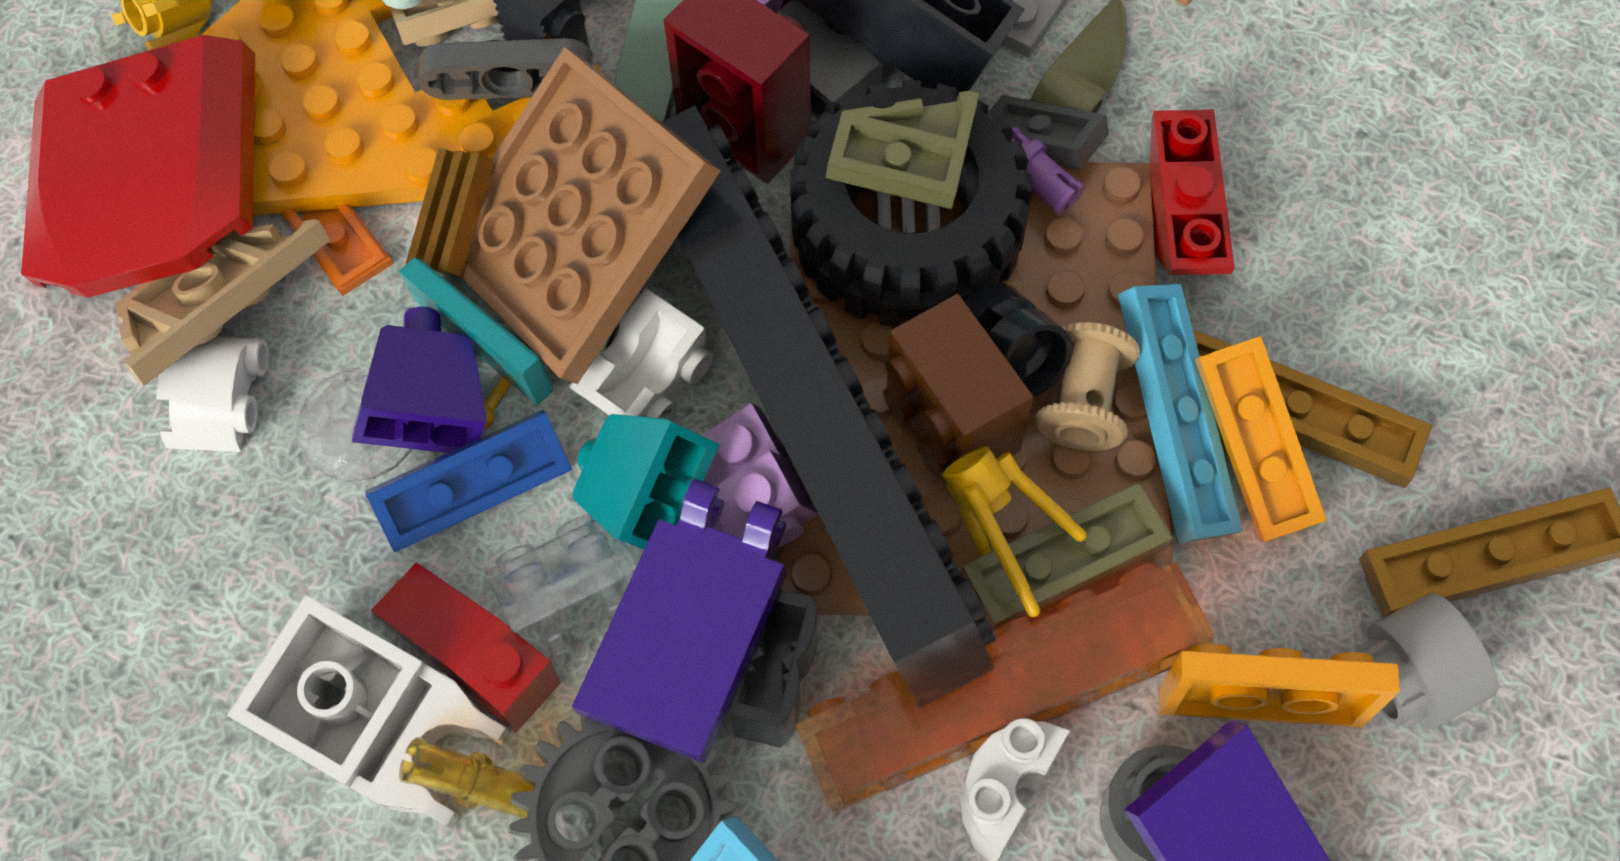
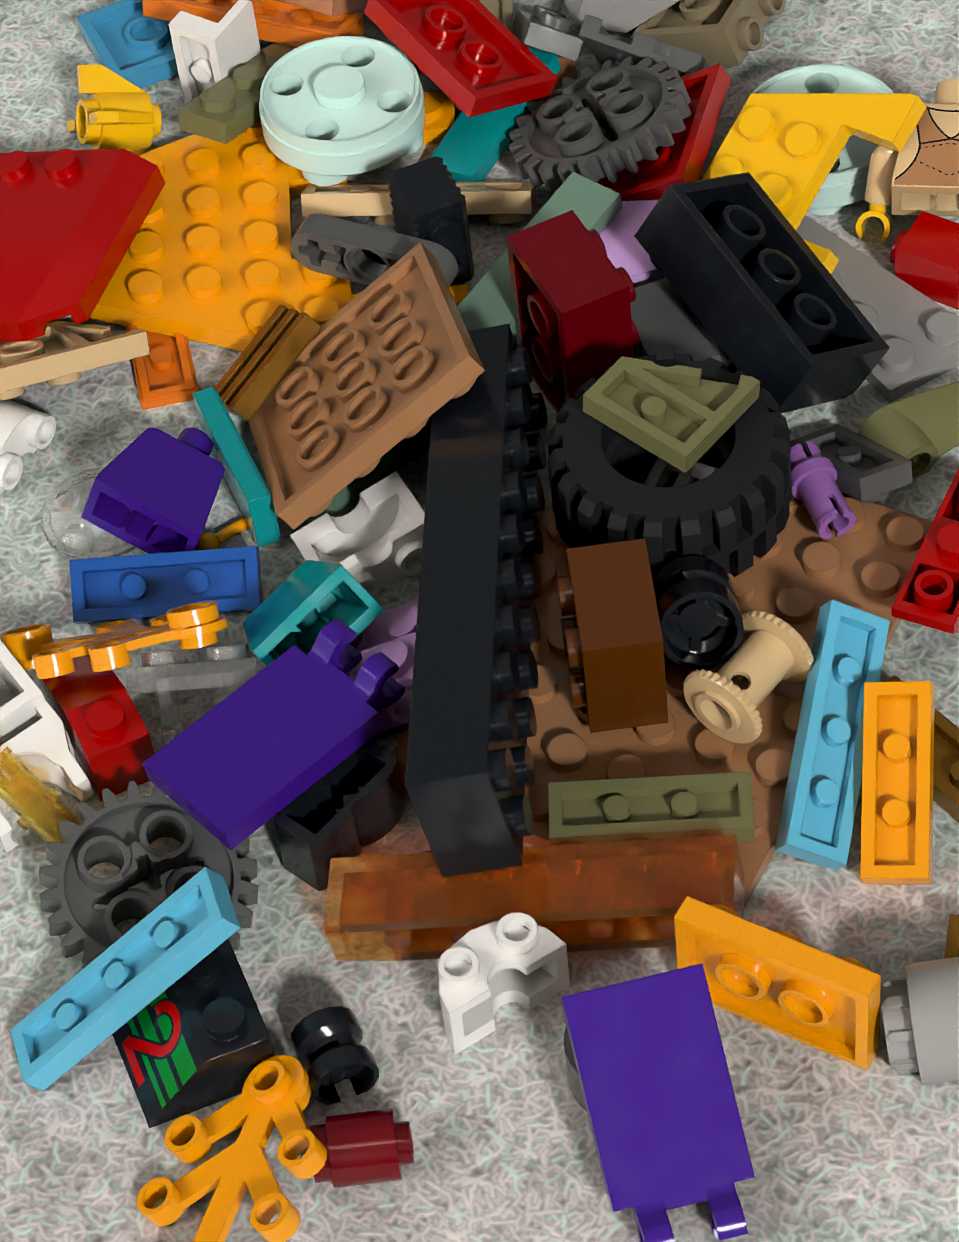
camera: 30 degrees right, 15 degrees down
(456, 565) = (190, 624): none -> light orange plant
(980, 489) = (585, 711): yellow plant -> none

